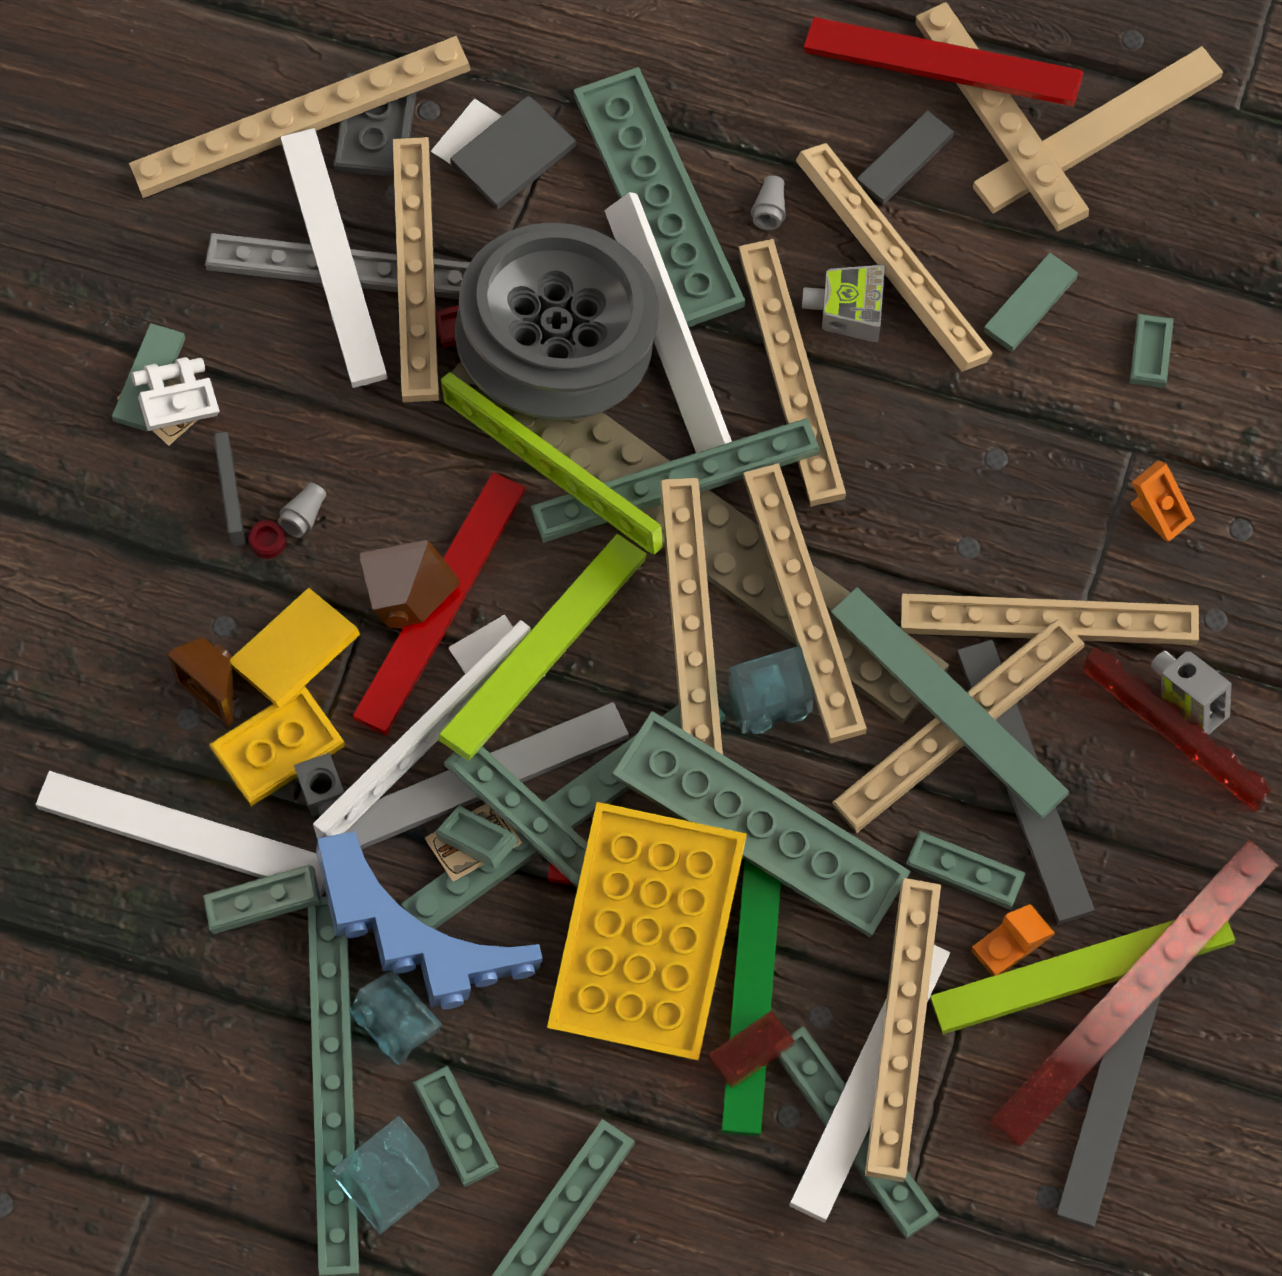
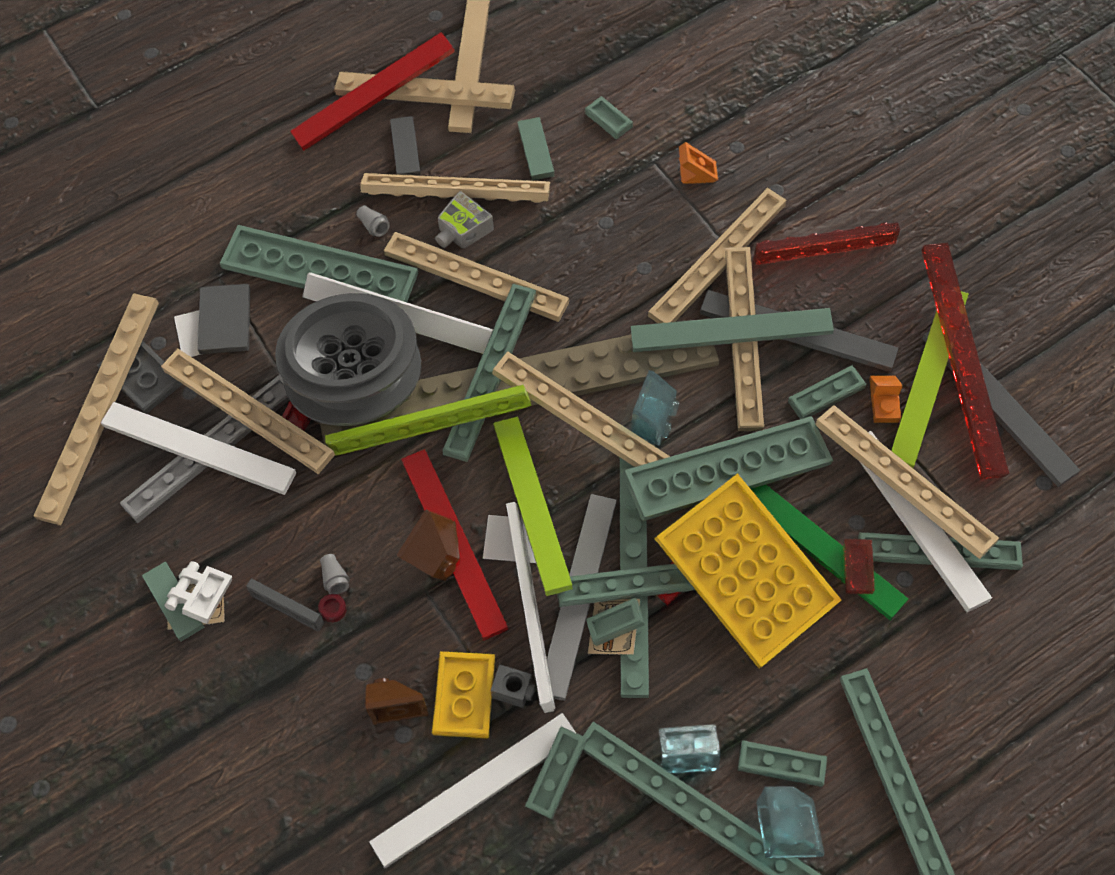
camera: 50 degrees left, 5 degrees down
(294, 647) = (414, 640): yellow tile -> none
(403, 941) = (610, 714): medium blue arch -> none
(804, 603) = (616, 356): tan plate -> none
(1194, 689) = (813, 216): light grey torso -> none

